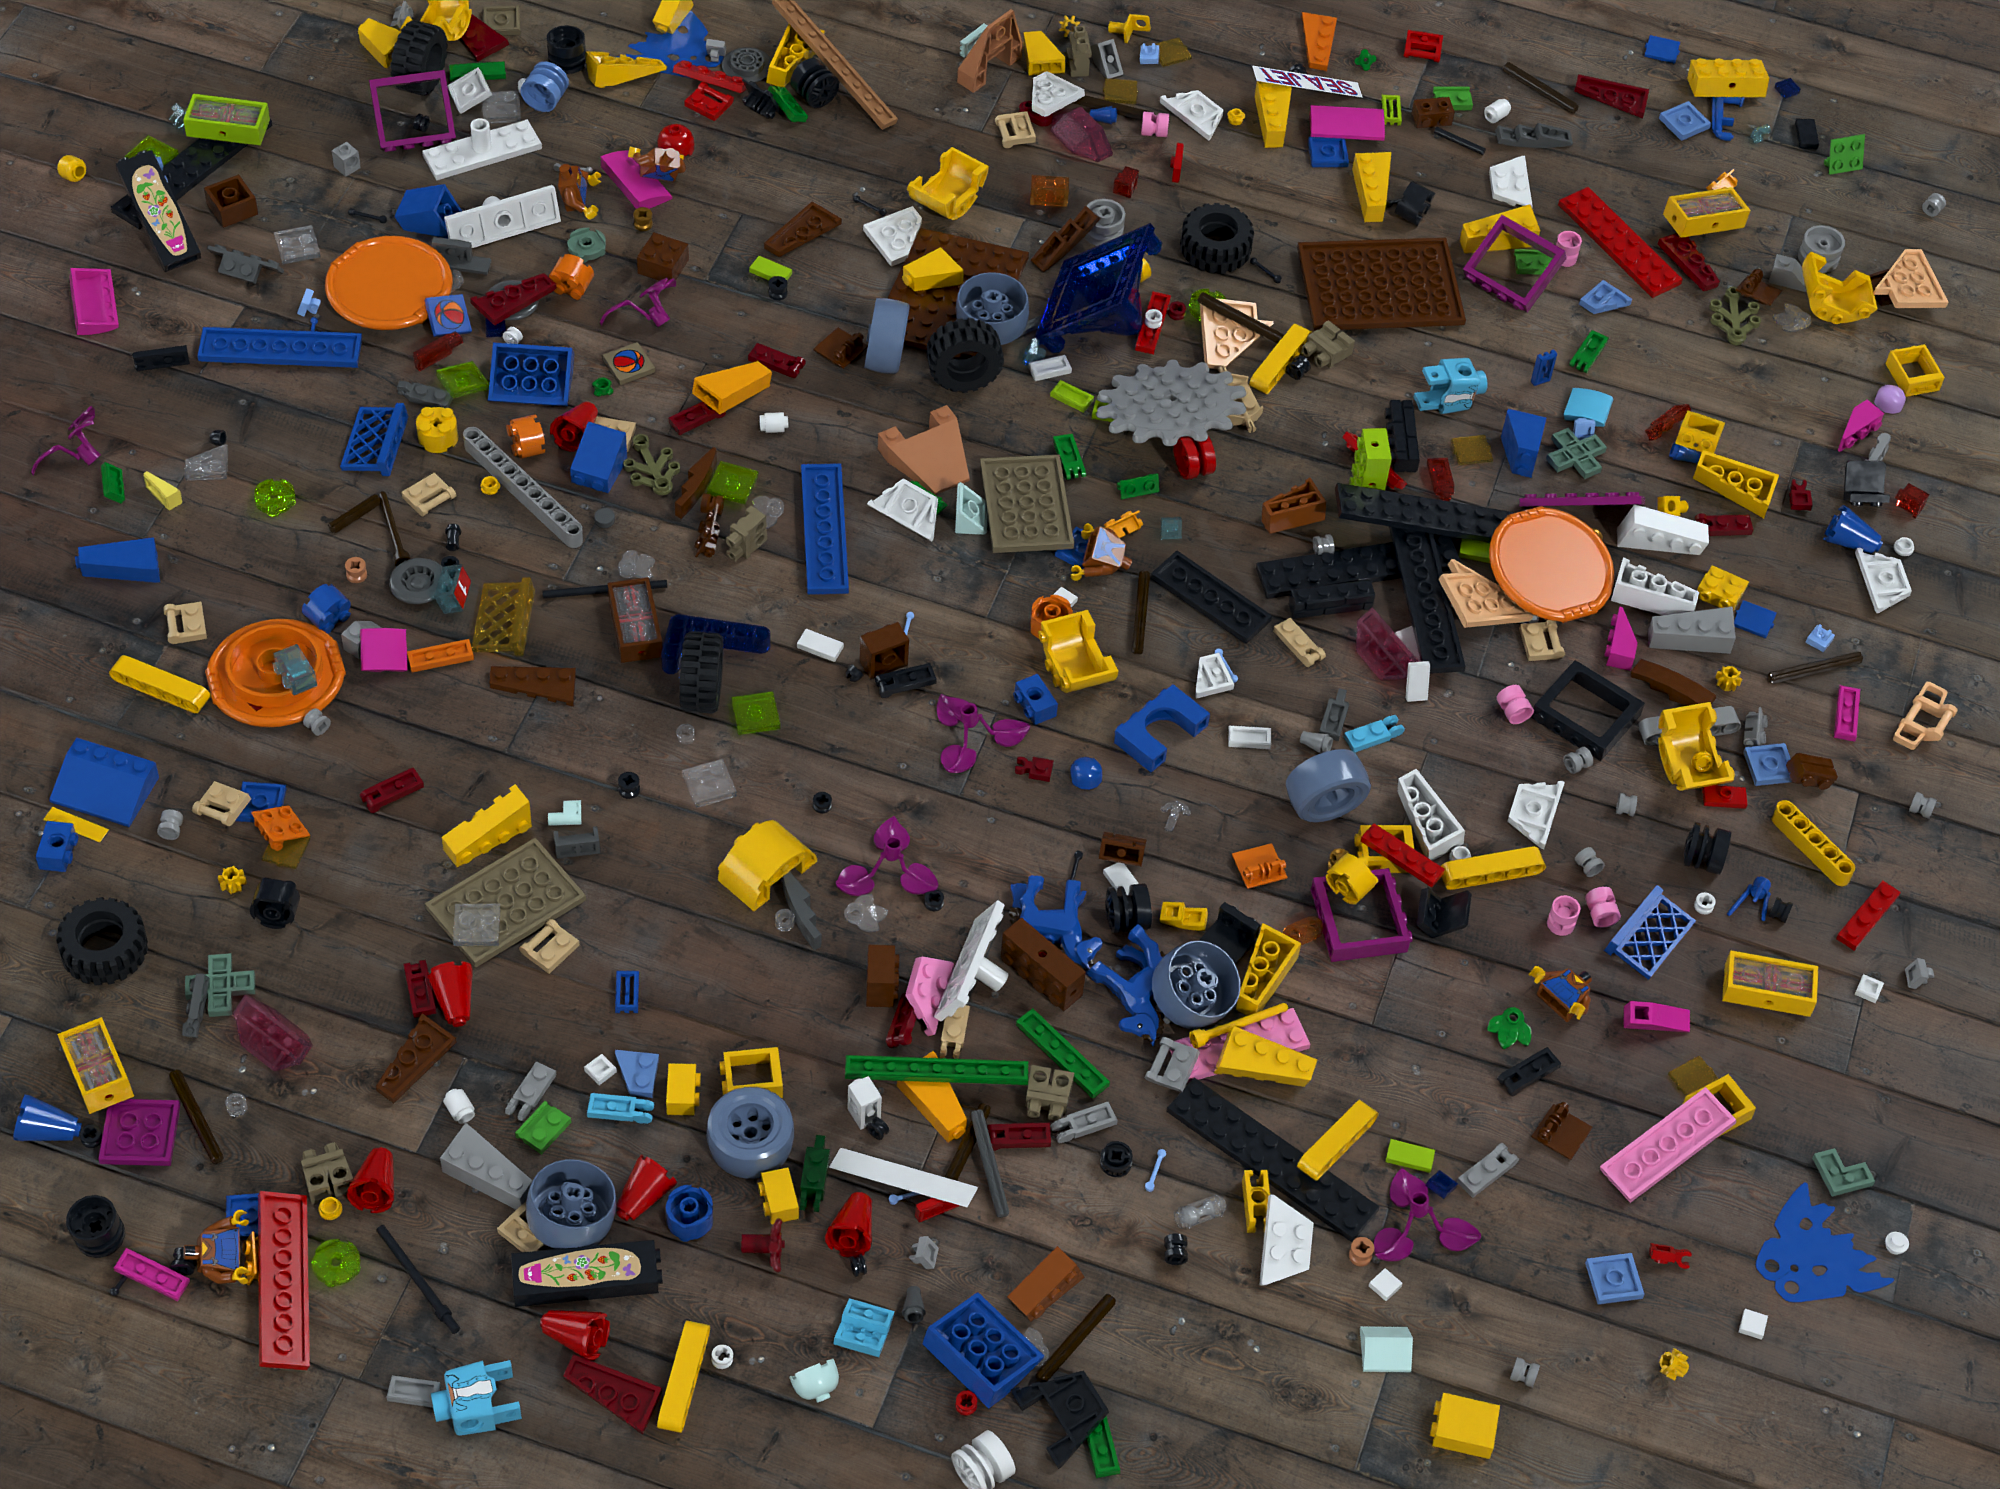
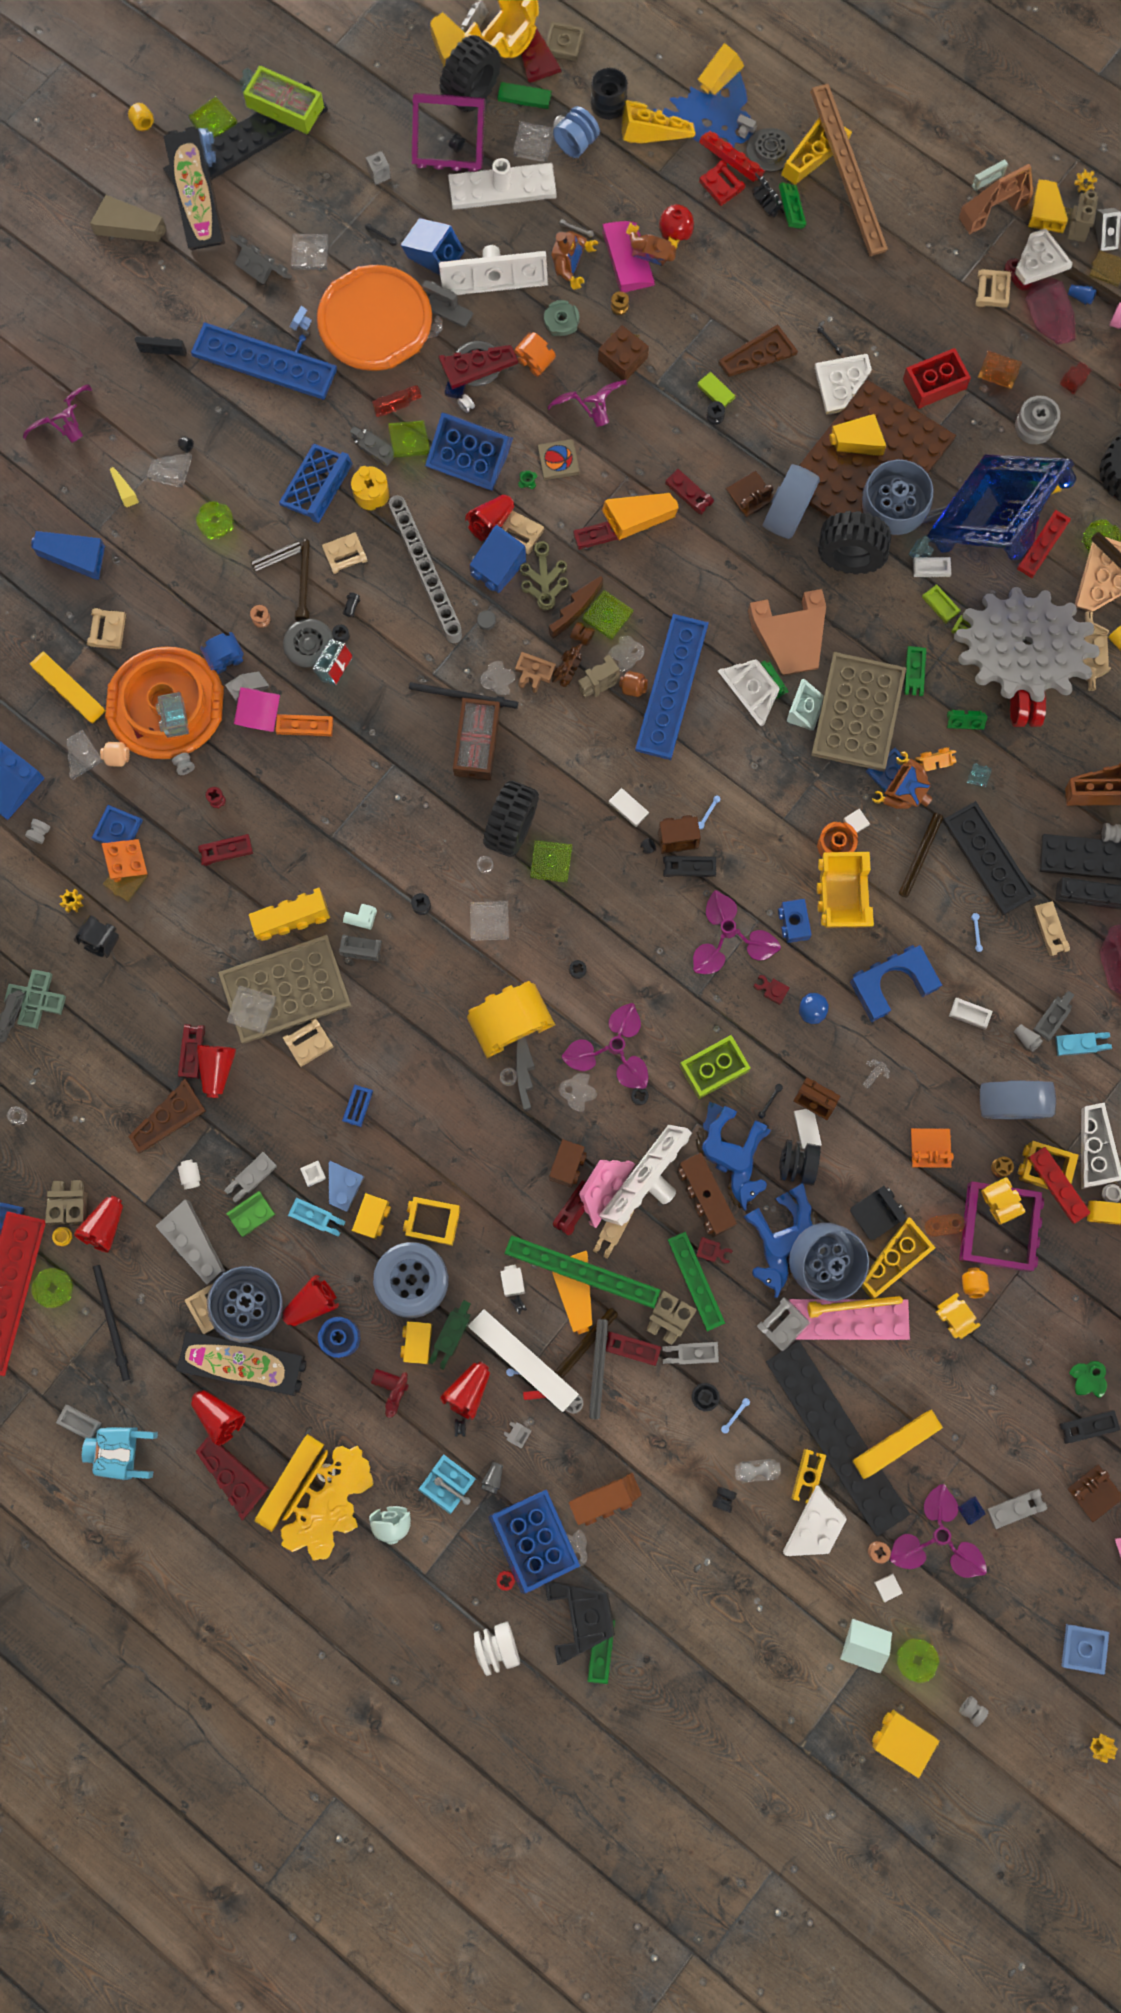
camera: 25 degrees right, 25 degrees up
(87, 254) = (127, 221): none -> dark tan slope
(93, 300) = (121, 267): dark pink slope -> none
(112, 482) = (85, 468): green plate -> none
(197, 742) = (81, 754): none -> clear wing
(224, 798) = (88, 818): tan plate -> none
(231, 201) = (264, 190): reddish brown brick -> none
(236, 730) = (115, 754): none -> light nougat head
(270, 1035) = (60, 1062): clear pink wedge -> none
(369, 746) = (218, 802): none -> dark red bush
(448, 315) = (414, 367): tile -> none
(469, 90) = (510, 117): white plate -> none
(490, 485) = (398, 555): yellow plate -> none
(520, 621) = (384, 702): clear yellow fence -> none
(526, 436) = (443, 519): orange brick -> none
(545, 682) = (378, 775): reddish brown wing -> none
(673, 548) = (534, 670): none -> medium nougat plate
(735, 637) = (535, 773): clear blue beam -> none
(737, 1387) = (328, 1508): none -> yellow plant
(773, 422) = (663, 560): white brick -> none
(783, 534) = (633, 684): none -> dark orange head
(814, 83) = (823, 190): black wheel -> none
(854, 1324) = (439, 1481): none -> light grey hinge
(953, 187) = (909, 341): yellow cylinder -> none
(978, 1201) = (576, 1405): none -> light grey wheel
(989, 210) = (936, 378): none -> red brick
(1004, 848) = (714, 1067): none -> lime brick
(1065, 240) = (994, 431): reddish brown slope -> none
(1066, 1020) = (710, 1250): none -> dark red plate
(1075, 1338) = (614, 1551): dark brown axle -> none
(1150, 314) = (1044, 548): white bush -> none
(1179, 312) = (1073, 531): dark red bush -> none
(1179, 916) = (847, 1178): yellow slope -> none
(1212, 676) = (960, 942): white wing -> none
(1262, 1059) = (856, 1346): yellow wedge -> none
(1350, 1003) = (957, 1316): none -> yellow brick
(1356, 972) = (975, 1283): none -> light orange head
(1410, 1156) = (955, 1473): lime tile -> none
(1443, 915) = (1074, 1250): black bracket -> none
(1446, 1331) = (928, 1665): none -> clear neon green plate

